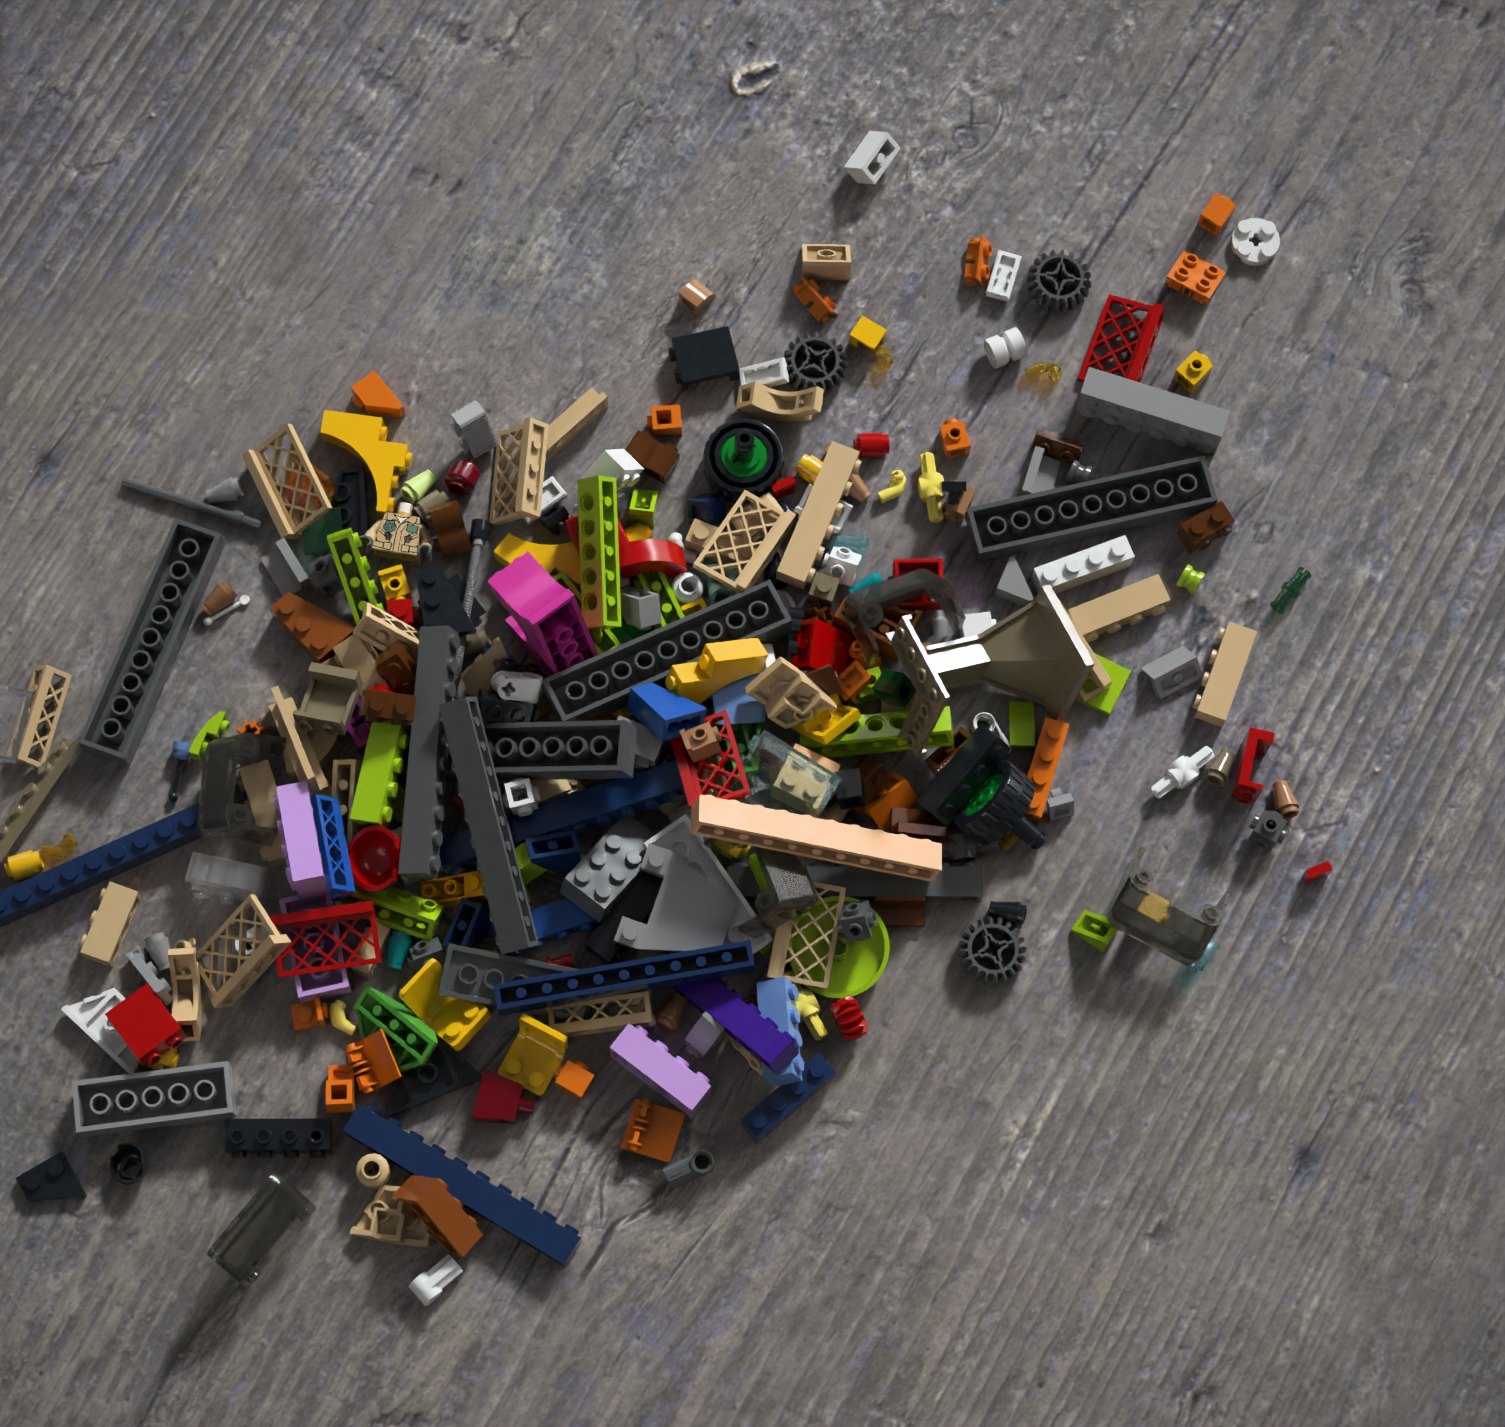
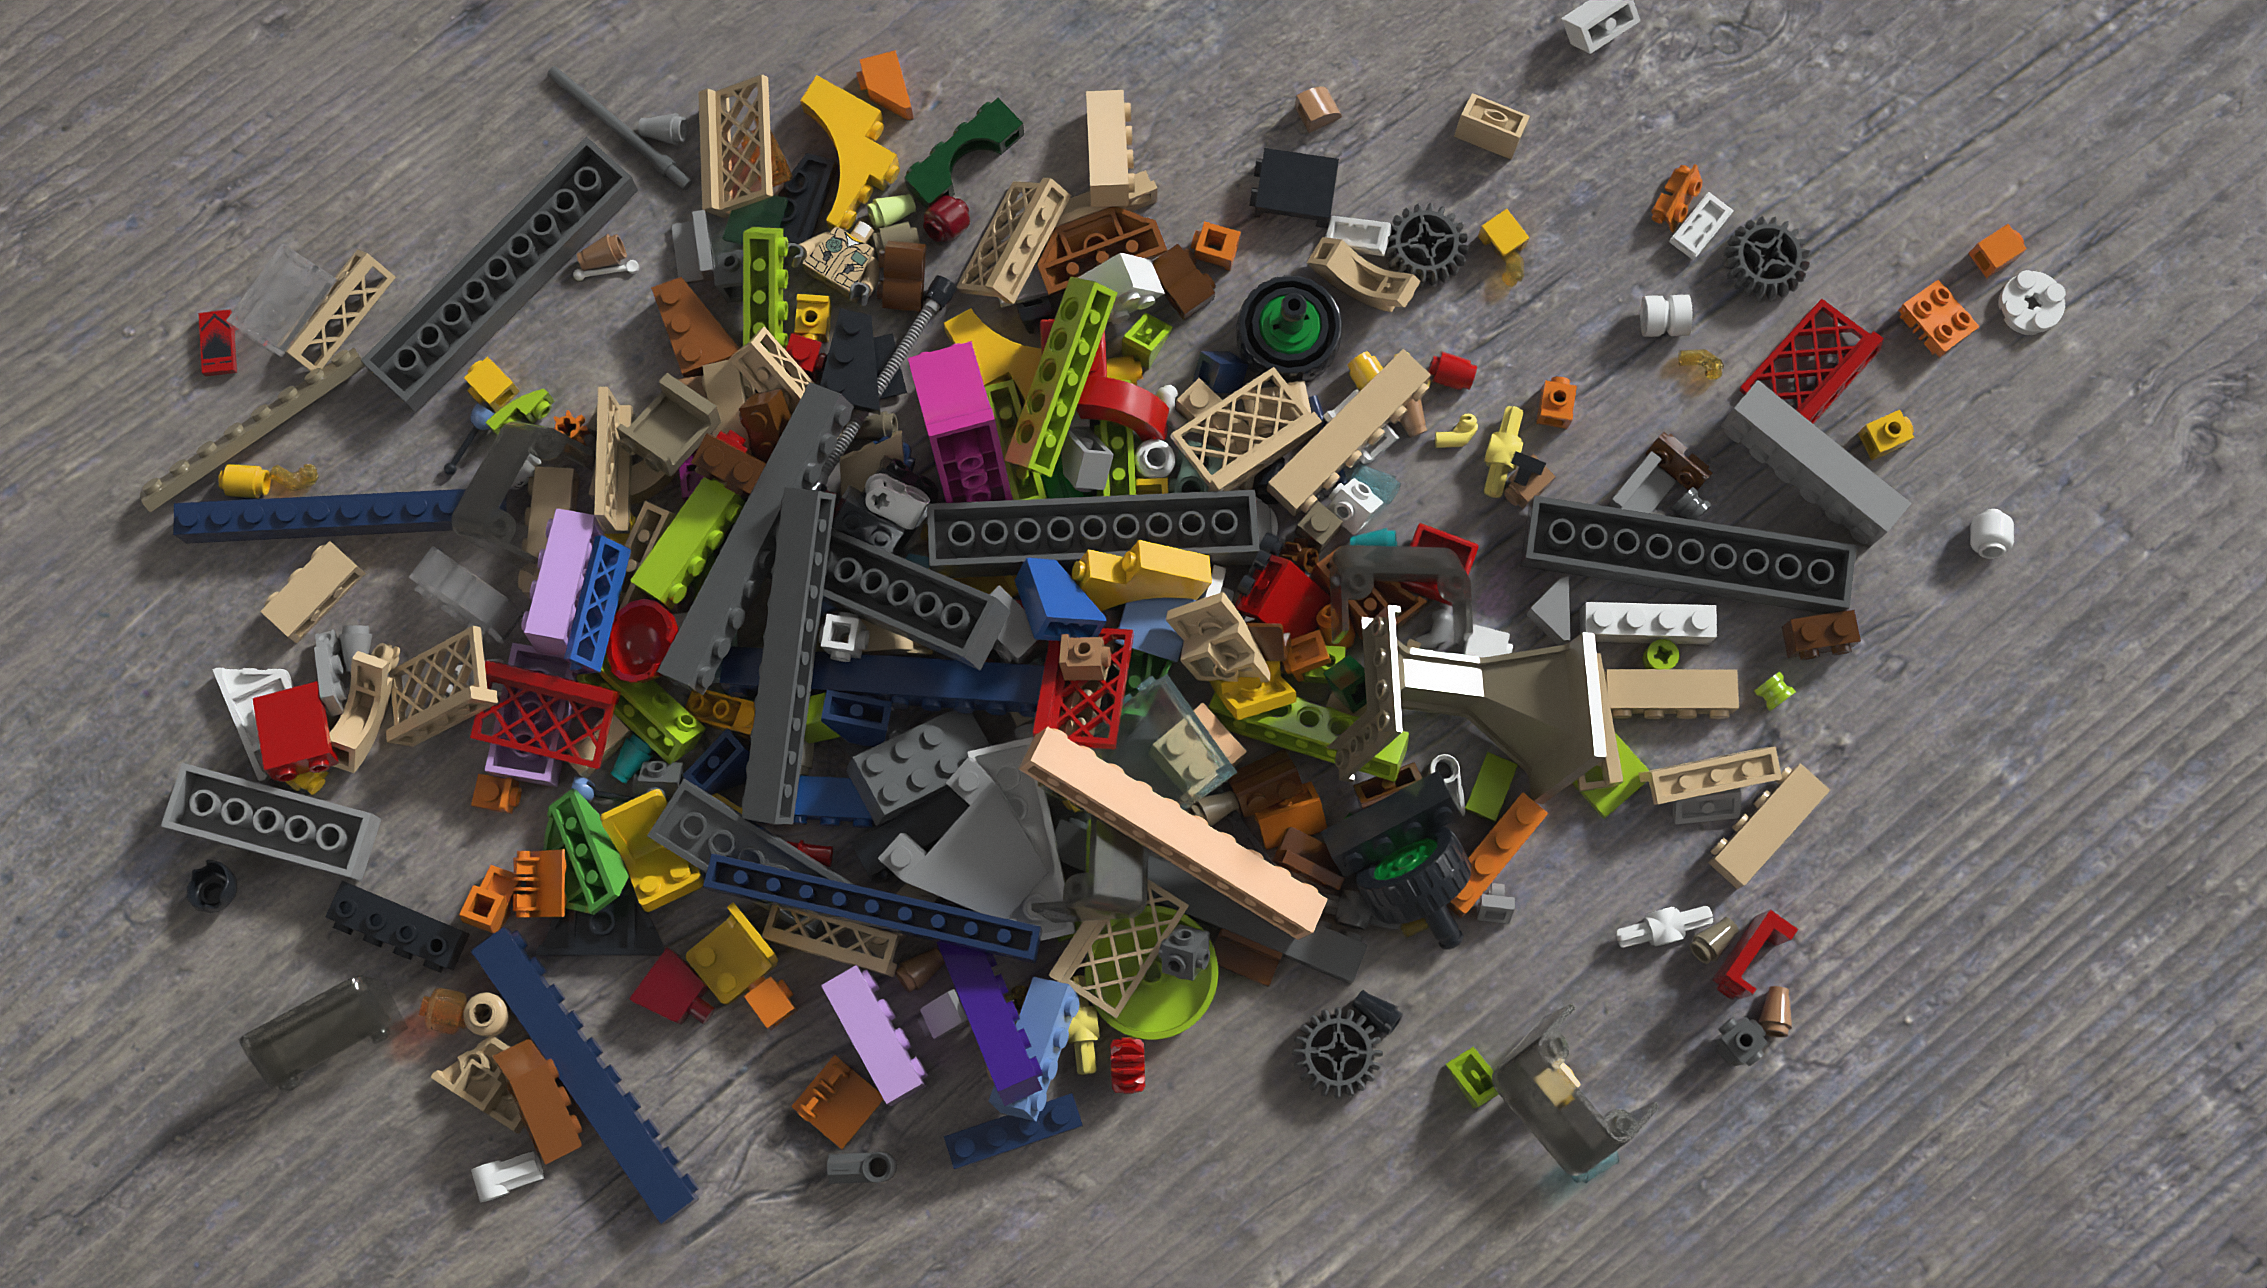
camera: 25 degrees right, 5 degrees up
(51, 1180) = (119, 868): black wing -> none
(177, 724) = (490, 384): none -> yellow brick
(338, 1018) = (528, 813): light yellow arm -> none
(340, 1182) = (444, 1010): none -> clear orange head
(378, 985) = (588, 791): none -> hinge
(440, 451) = (992, 129): none -> dark green arch
(474, 429) = (982, 167): light grey brick -> none
(559, 381) = (1108, 148): none -> tan brick
(578, 451) = (1092, 241): none -> dark orange wedge
(783, 487) = (1323, 382): red tile -> none
(810, 292) = (1457, 155): orange hinge -> none
(851, 789) = (1246, 787): black brick -> none
(1096, 590) = (1654, 659): none -> lime wheel
(1172, 653) = (1713, 775): none -> tan fence
(1290, 590) = (1894, 754): clear green pin -> none
(1294, 411) = (1992, 534): none -> white head
(1317, 872) = (1779, 1120): red tile -> none

